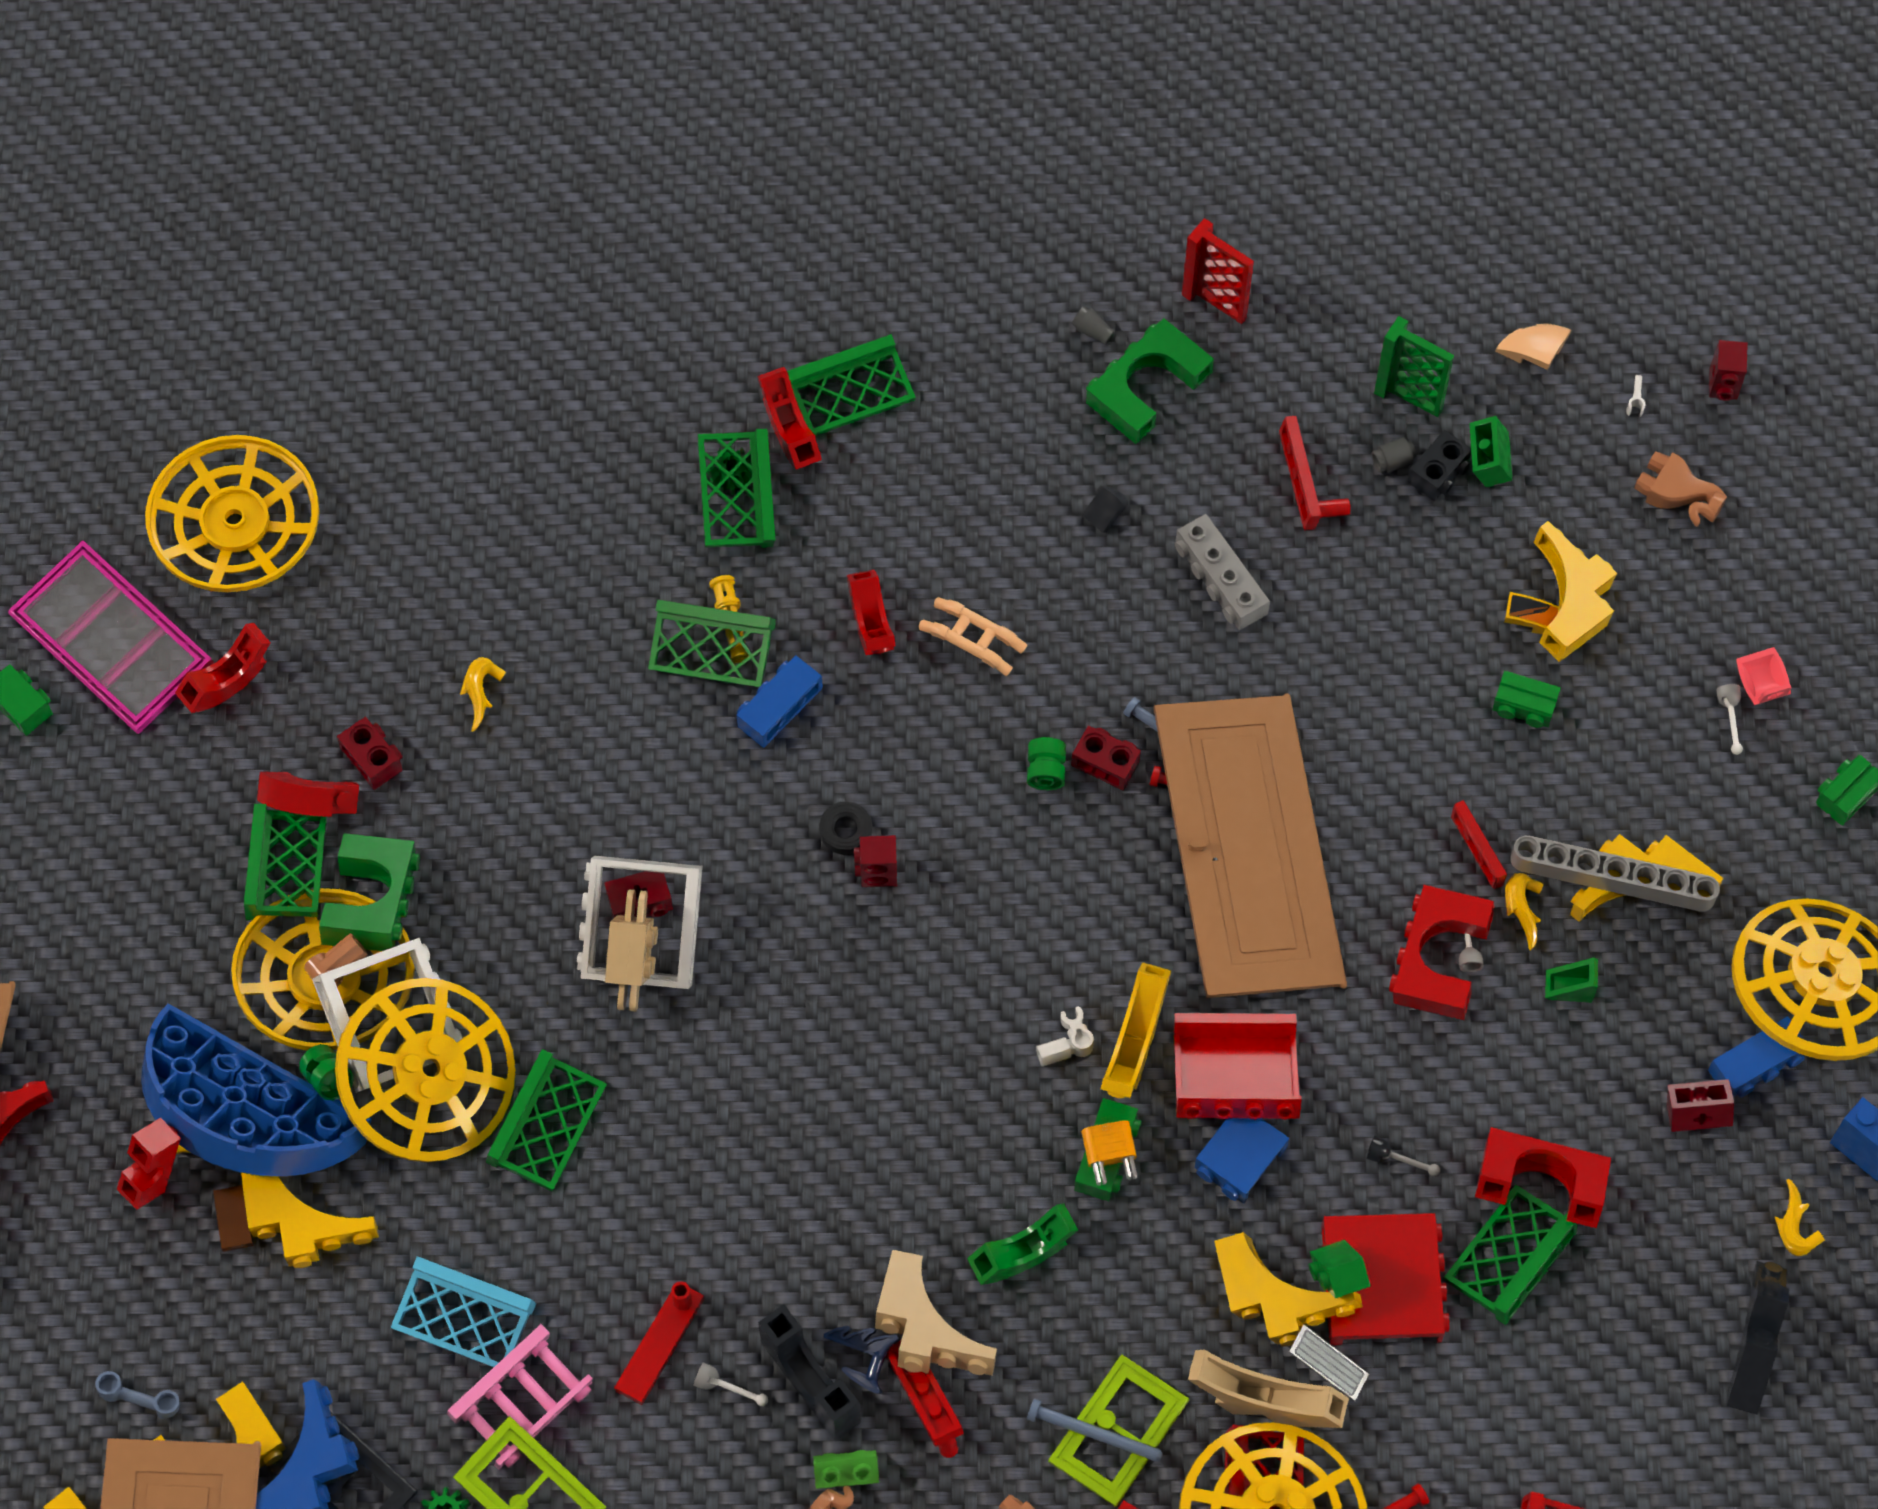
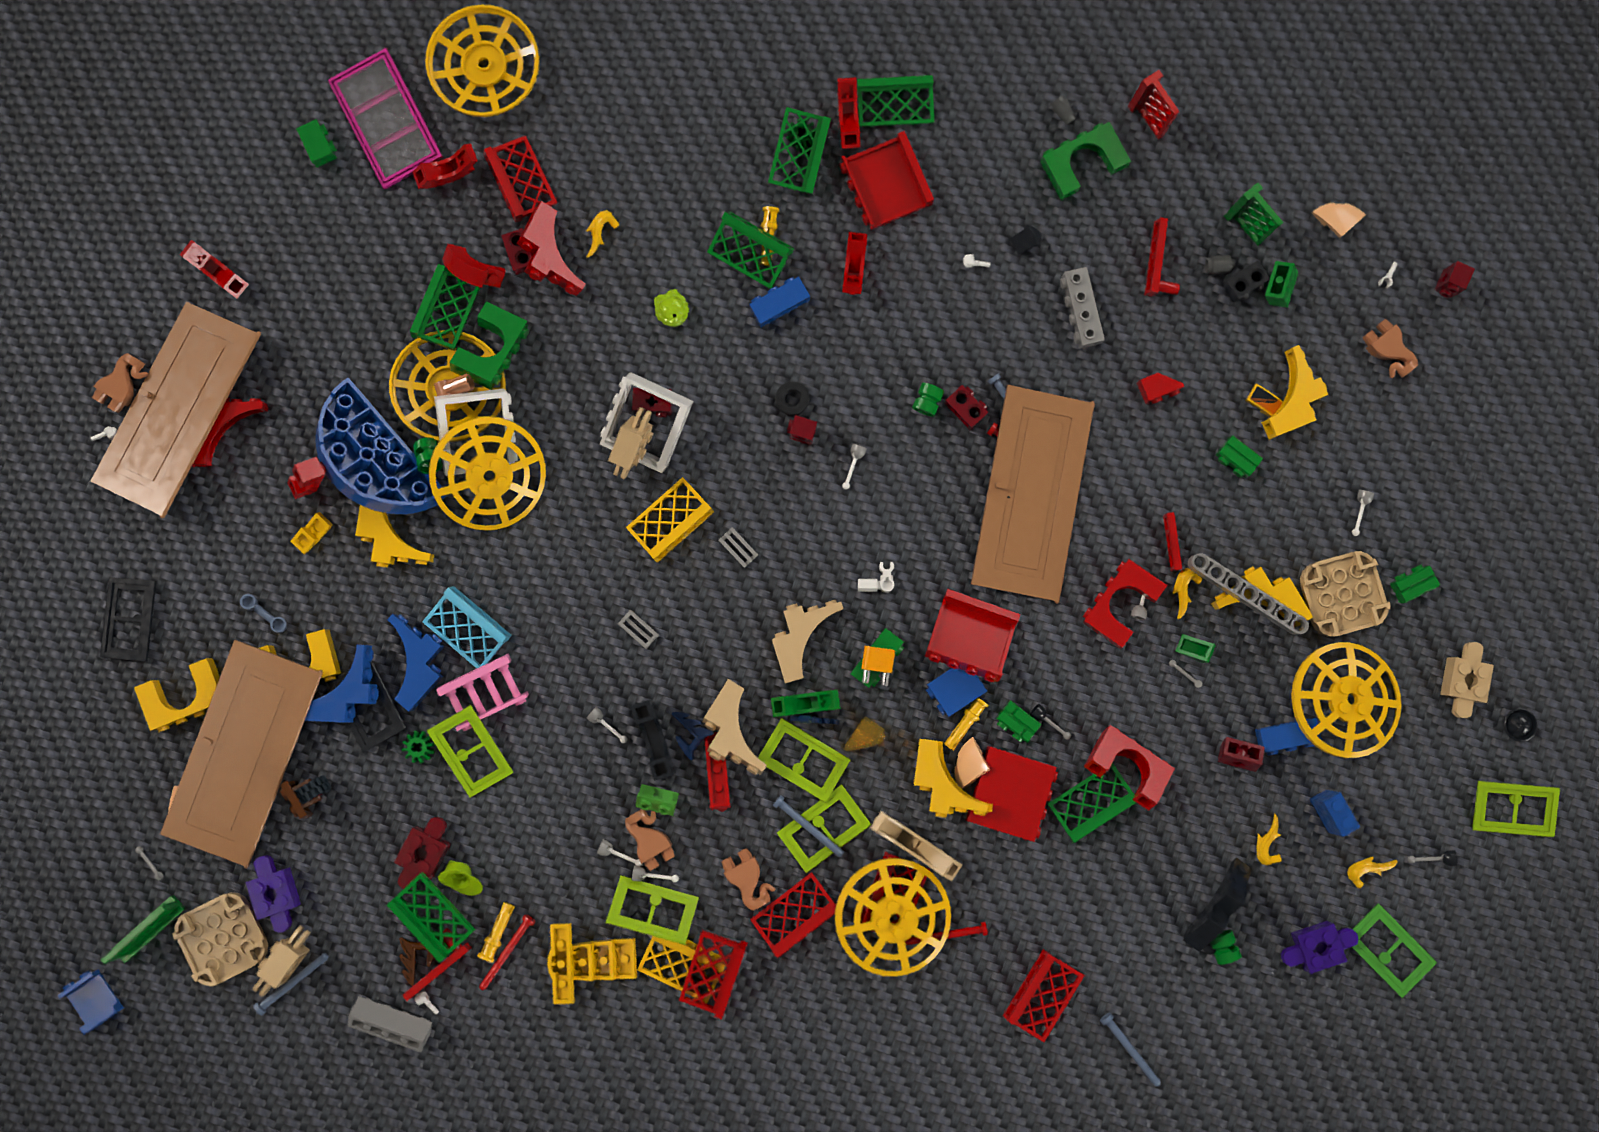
camera: 15 degrees right, 20 degrees up
(177, 1253) = (312, 533): none -> yellow slope
(232, 1218) = (349, 522): reddish brown tile -> none
(315, 664) = (503, 179): none -> red fence
(414, 745) = (546, 260): none -> arch
(414, 1405) = (420, 652): none -> blue arch
(520, 1113) = (537, 517): green fence -> none
(615, 757) = (671, 304): none -> lime hair
(659, 1342) = (575, 684): red piece -> none
(723, 1240) = (650, 639): none -> light grey tile
(744, 1068) = (678, 533): none -> yellow fence
(845, 1052) = (727, 535): none -> light grey tile
(878, 494) = (887, 181): none -> red panel
(969, 869) = (856, 452): none -> hinge
(974, 1140) = (790, 646): none -> tan arch
(980, 649) = (913, 309): light nougat piece -> none
(1036, 563) = (969, 261): none -> white hand
(1037, 1269) = (808, 719): none -> dark blue piece
(1045, 1361) = (798, 768): none -> lime door
(1131, 1262) = (865, 735): none -> clear yellow slope
(1136, 1031) = (918, 597): yellow arch -> none
(1279, 1186) = (971, 715): none -> yellow pin
(1296, 1254) = (969, 764): none -> light nougat brick
(1329, 1362) = (959, 834): sticker -> none
(1339, 1269) = (984, 788): green brick -> none
(1352, 1172) = (1017, 721): none -> green brick
(1372, 641) = (1158, 386): none -> red slope
(1596, 1032) = (1197, 683): none -> light grey hinge
(1756, 837) = (1344, 594): none -> tan tile
(1763, 676) = (1392, 492): coral piece -> none
(1793, 1394) = (1225, 949): none -> green wheel

